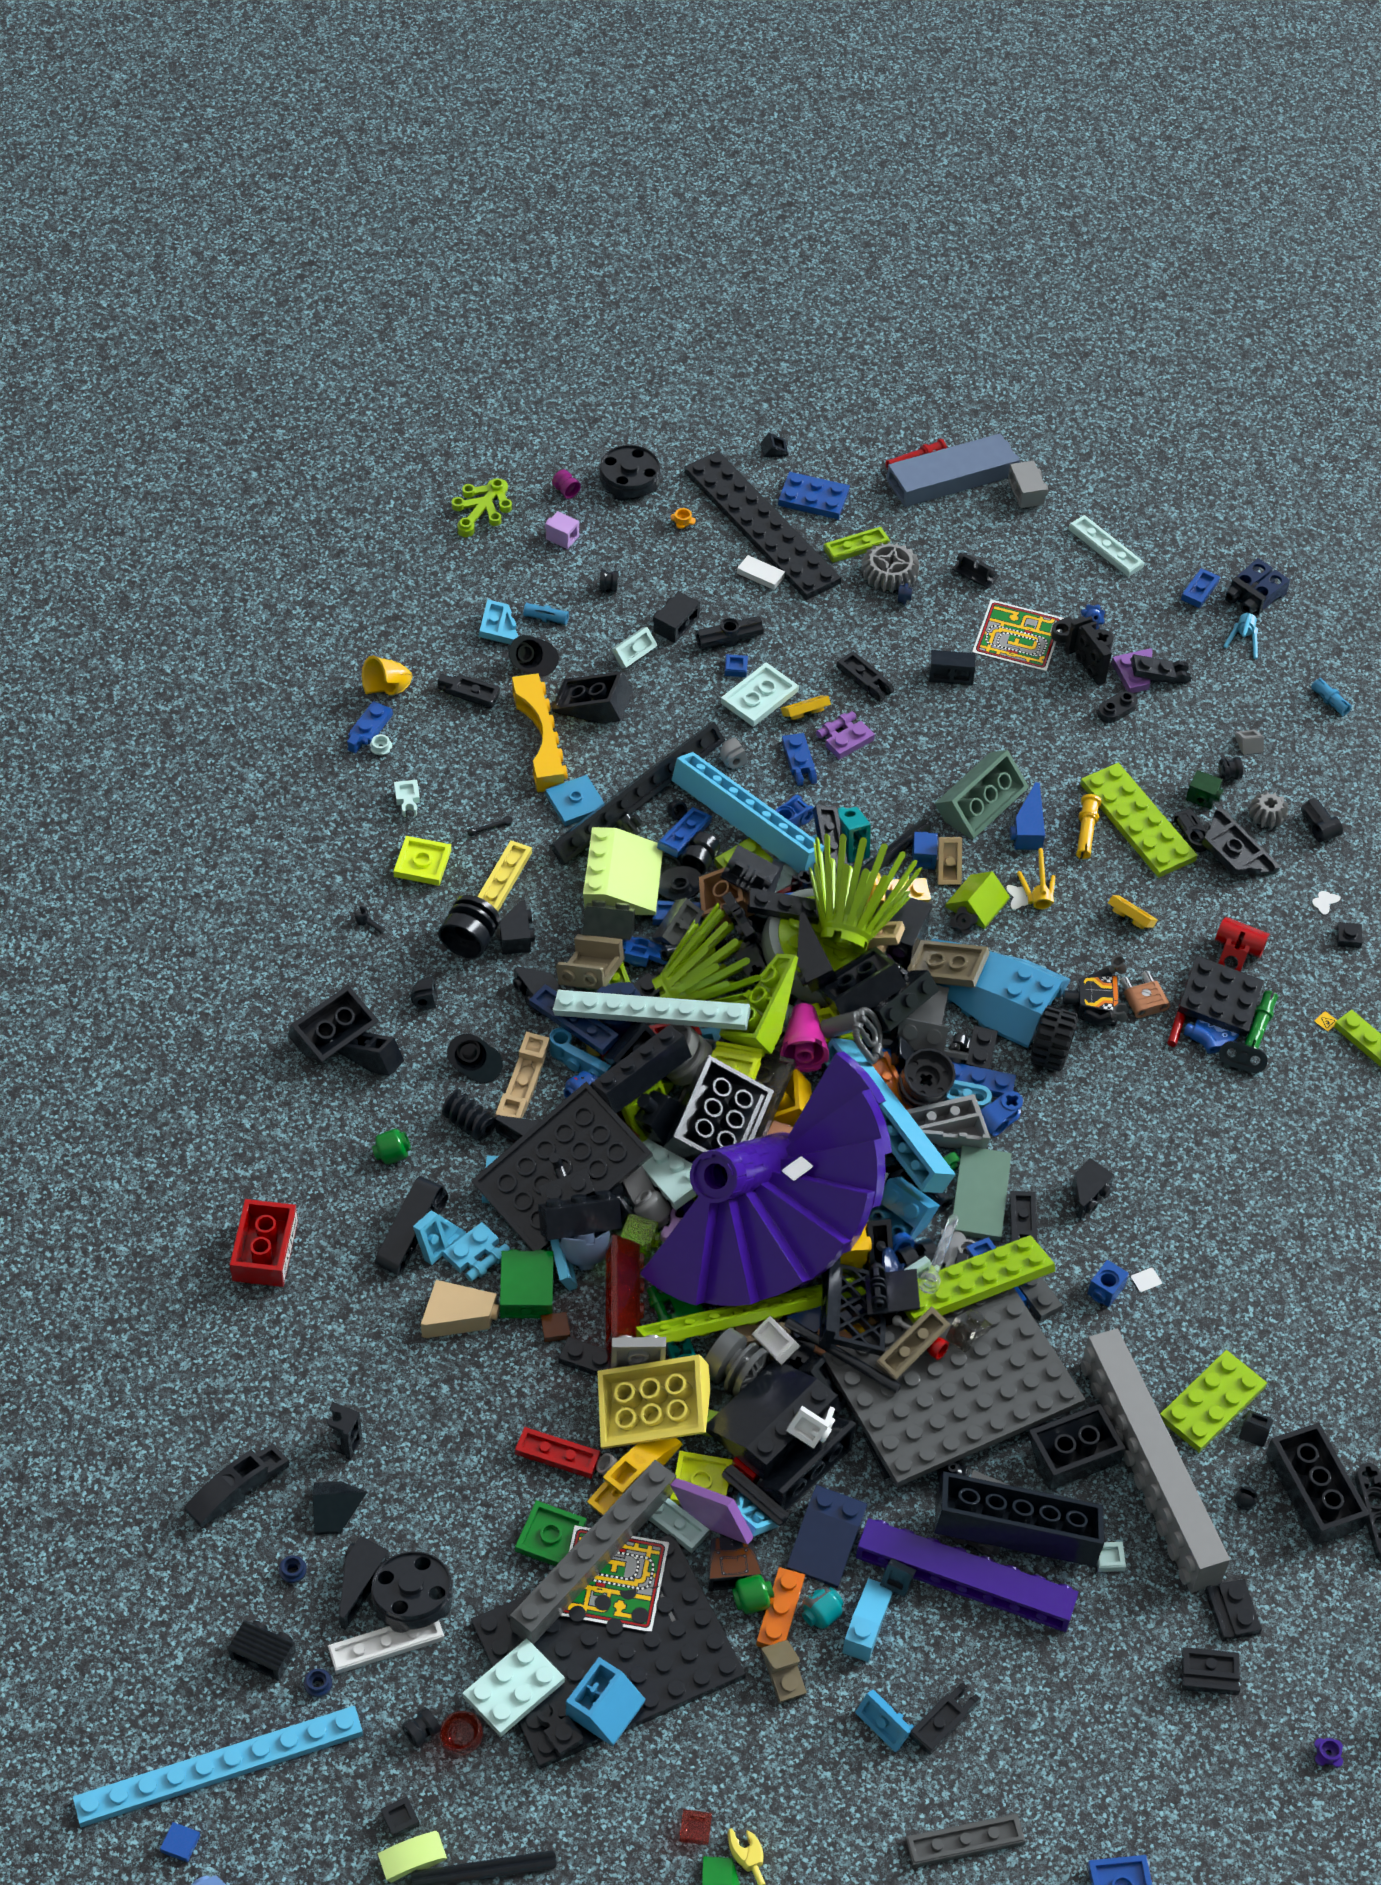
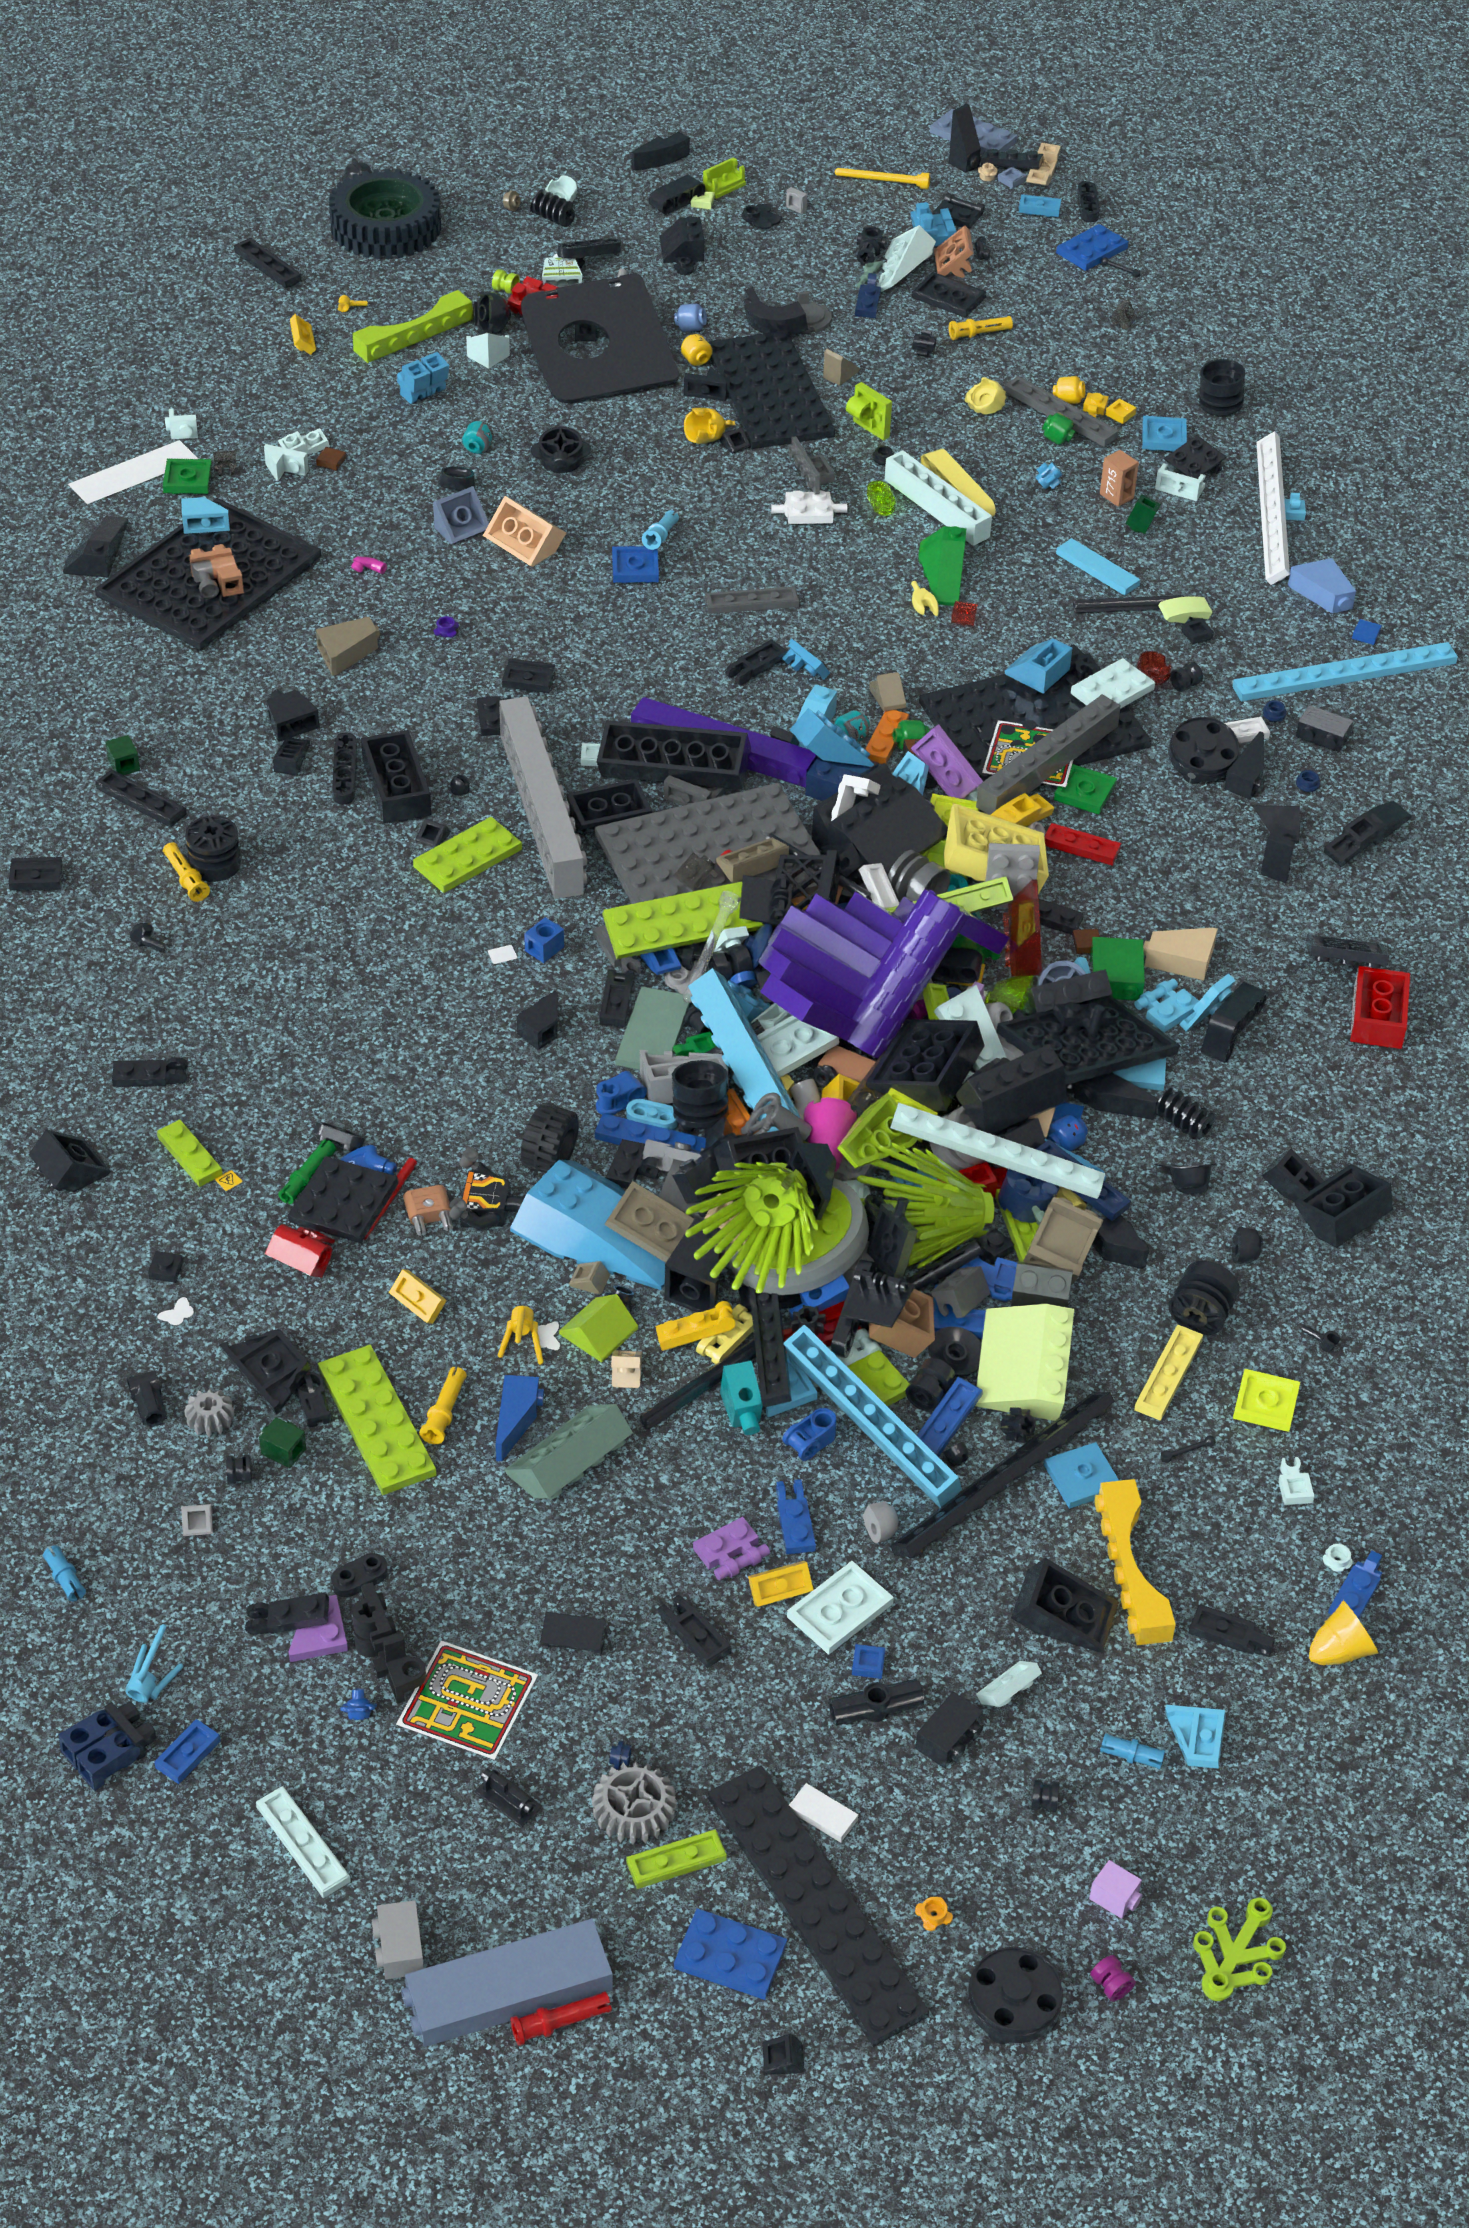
camera: 175 degrees left, 5 degrees down
(288, 1302) = (1347, 951): none -> black plate
(391, 1146) = (1264, 1092): green head -> none
(515, 930) = (1148, 1307): black slope -> none
(525, 1076) = (1133, 1148): tan slope -> none
(533, 655) = (1154, 1676): black piece -> none
(781, 905) = (849, 1234): black plate -> none
(797, 1168) = (855, 955): white sticker -> none
(843, 1550) = (829, 740): none -> dark azure slope
(925, 849) = (653, 1380): blue brick -> none
(994, 941) = (590, 1277): none -> dark tan slope

